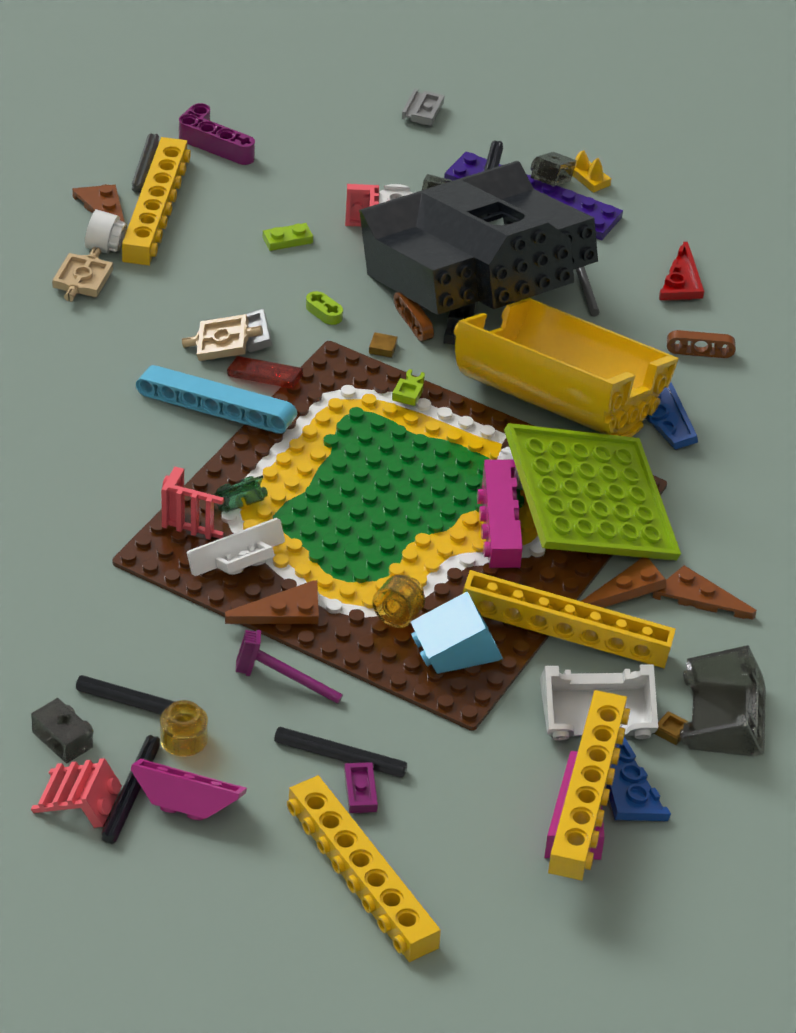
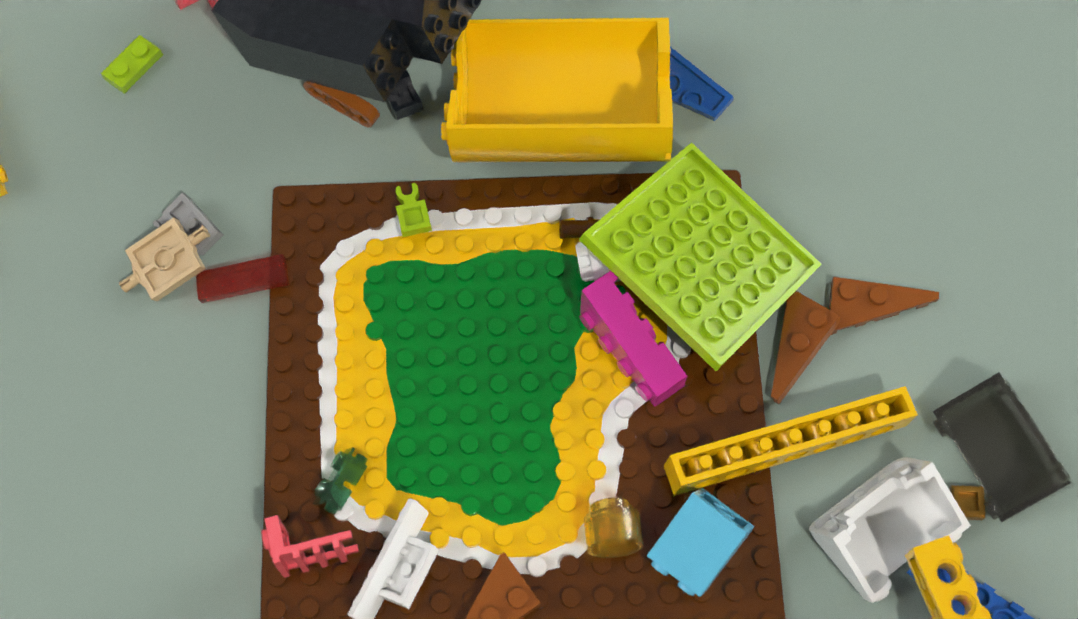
camera: 30 degrees left, 25 degrees up
(216, 399) = (219, 355): medium azure beam -> none
(324, 308) = (240, 141): lime beam -> none
(383, 344) = (335, 158): pearl gold tile -> none

